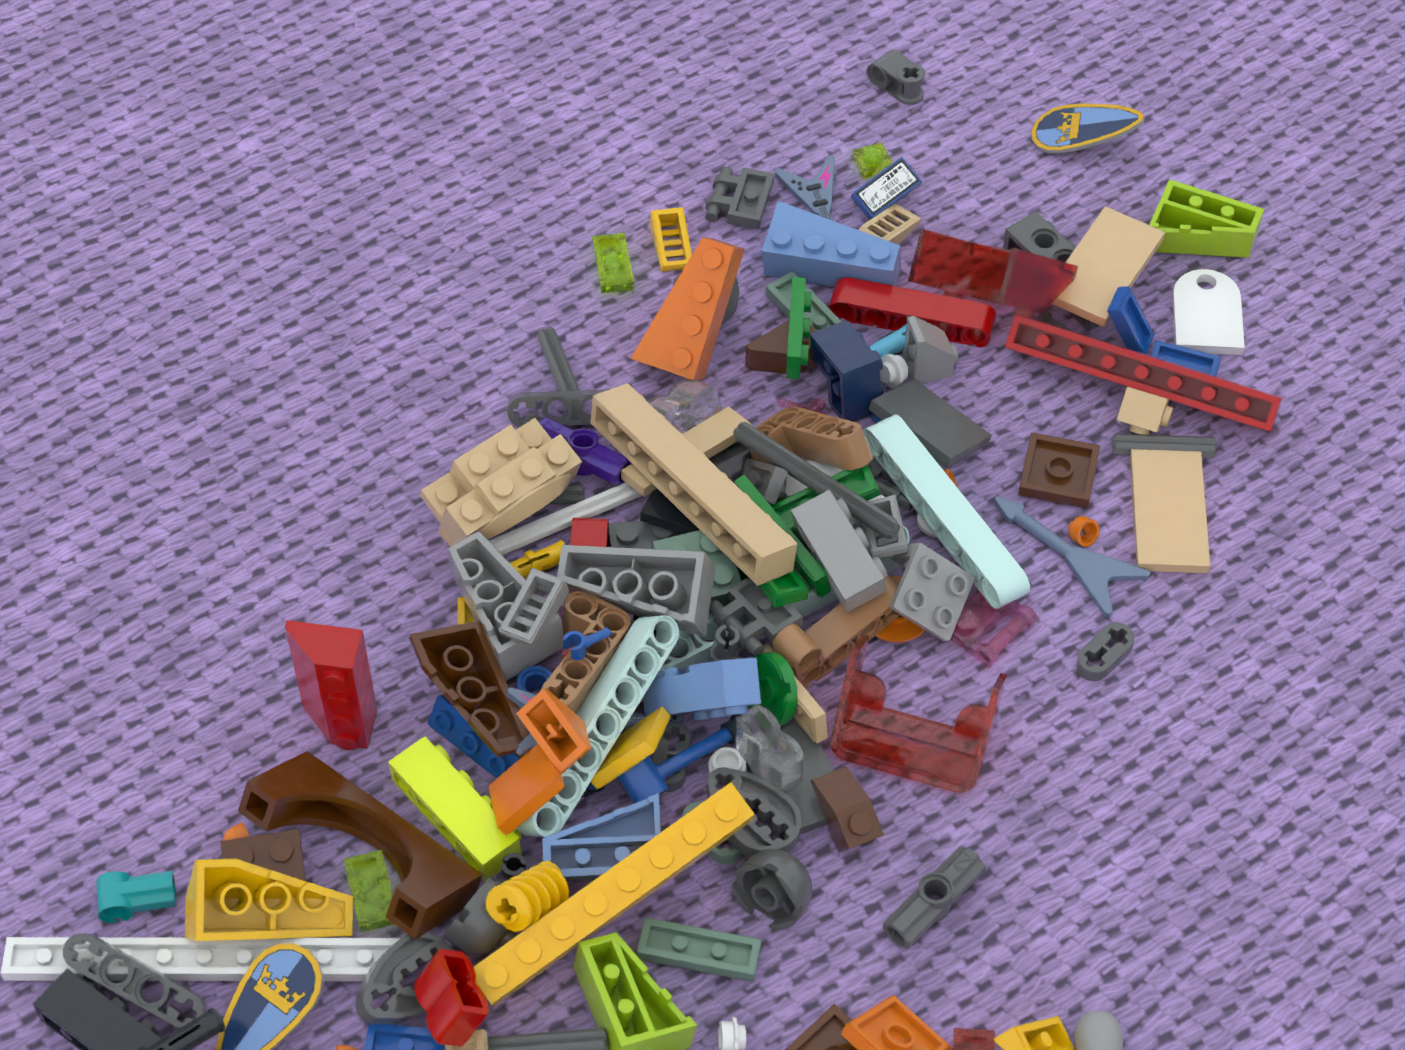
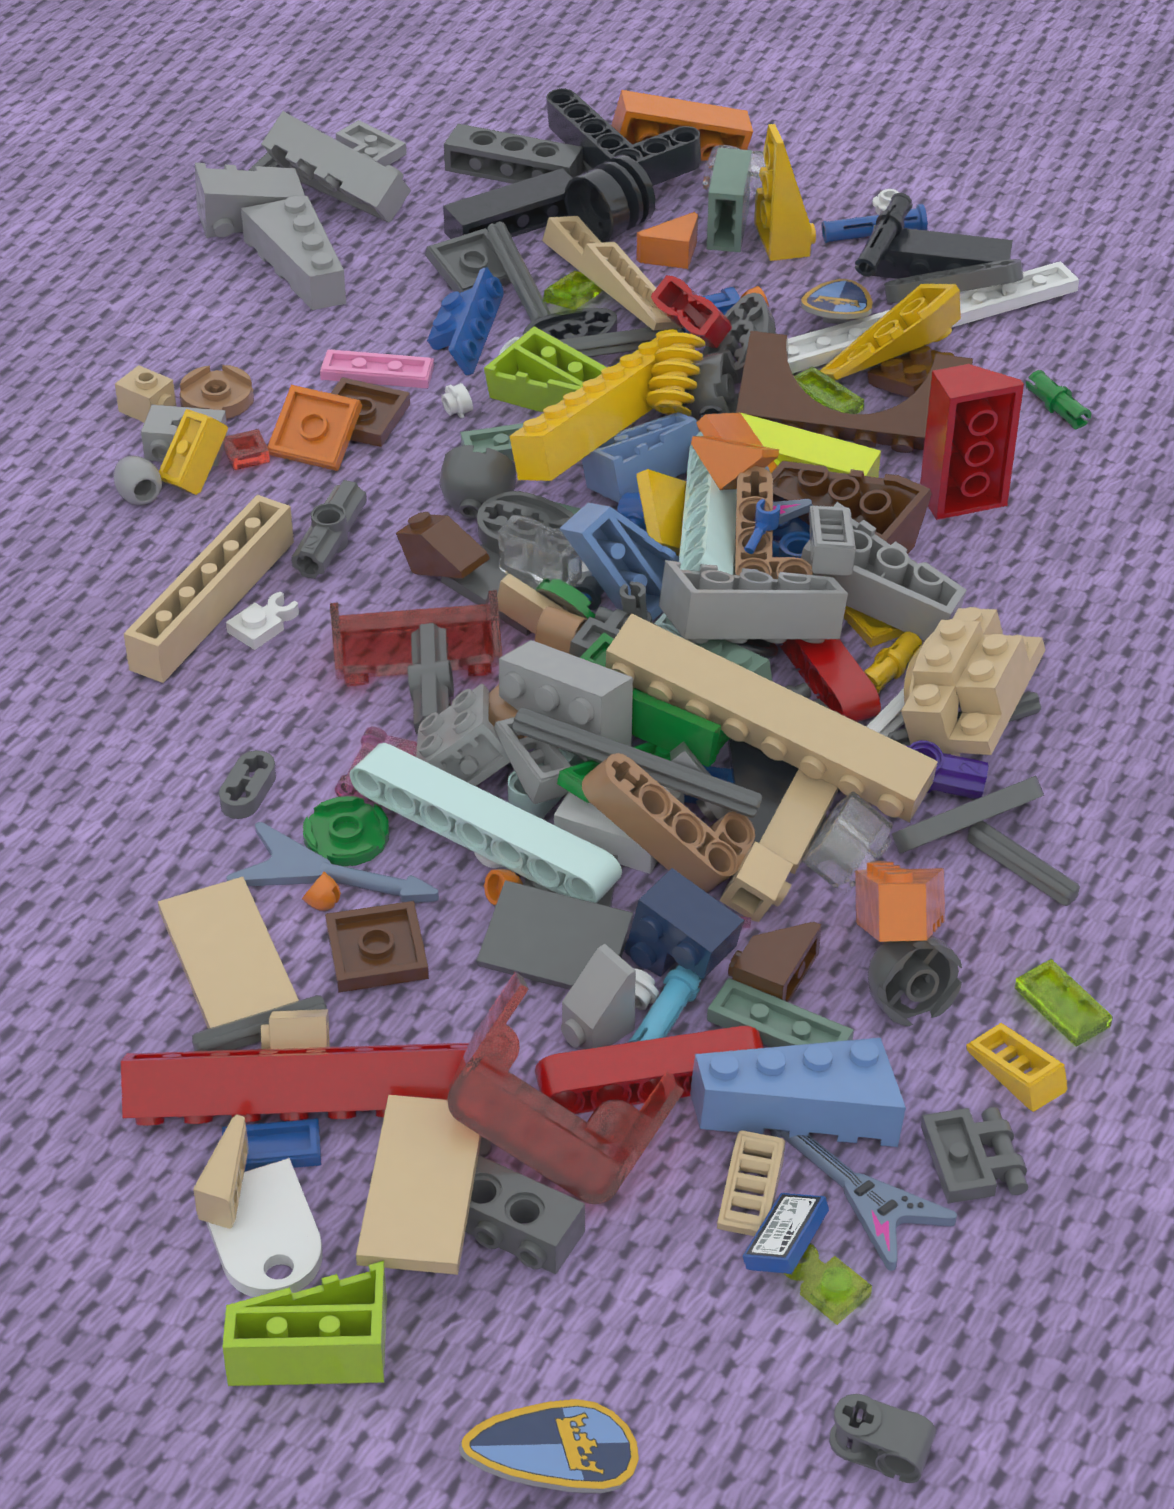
camera: 155 degrees right, 10 degrees down
(124, 895) = (1017, 330): teal piece -> none
(162, 793) = (1058, 399): none -> green pin
(763, 401) = (758, 883): none -> tan brick
(798, 328) = (769, 939): green plate -> none
(917, 683) = (430, 672): none -> dark grey piece
(1036, 821) = (260, 624): none -> white plate
(1045, 596) = (347, 842): none -> green tile
(1071, 853) = (208, 588): none -> tan brick
(1130, 320) = (357, 1131): blue tile -> none
(1230, 324) = (222, 1178): none -> tan slope

